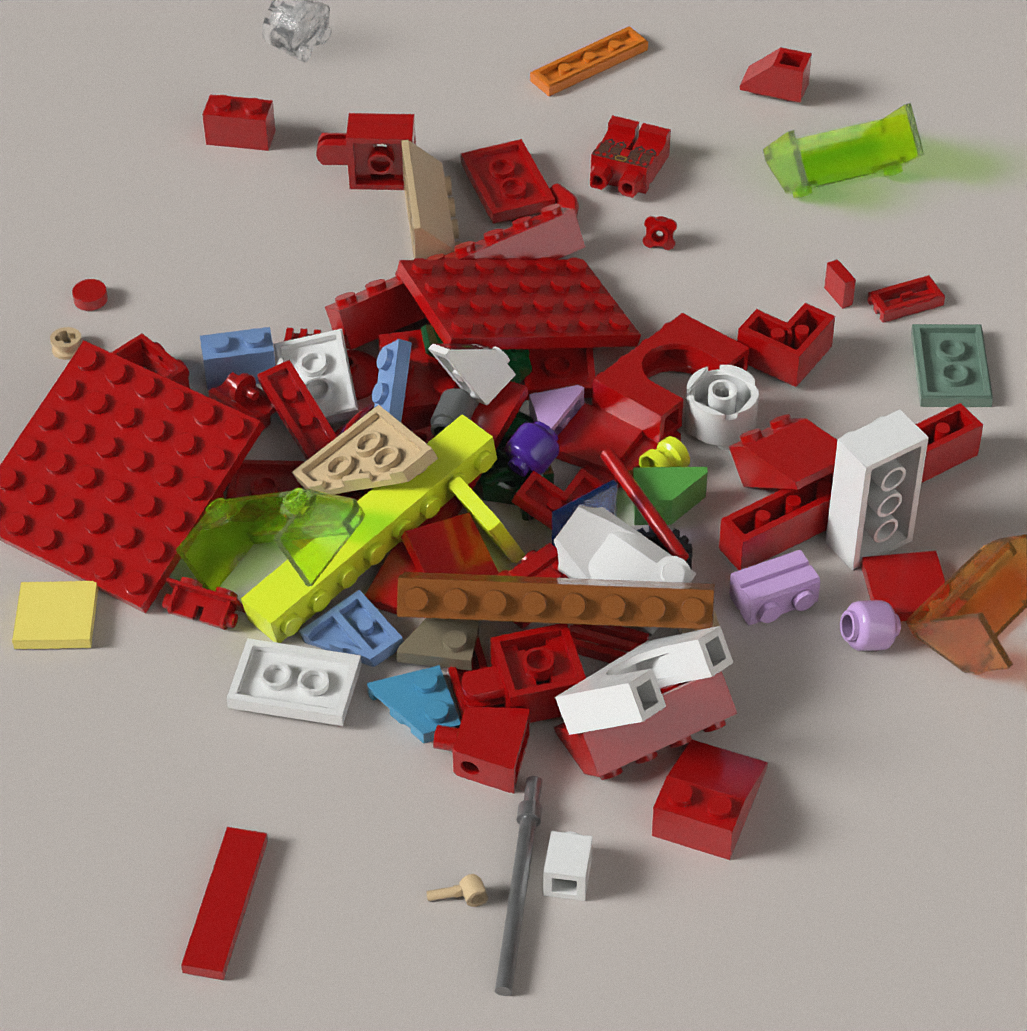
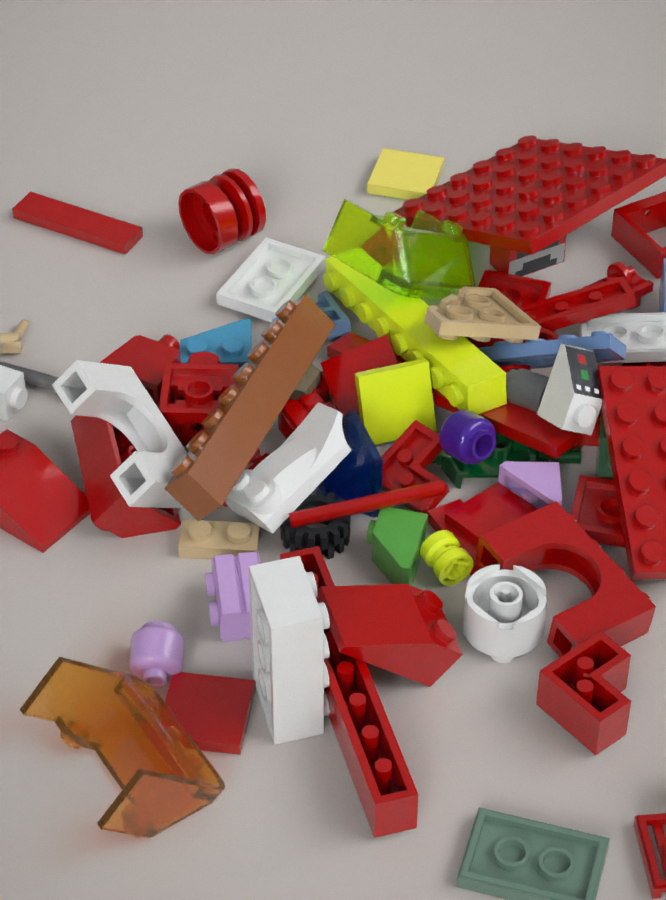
camera: 105 degrees right, 5 degrees down
(206, 734) = (222, 211): none -> red wheel

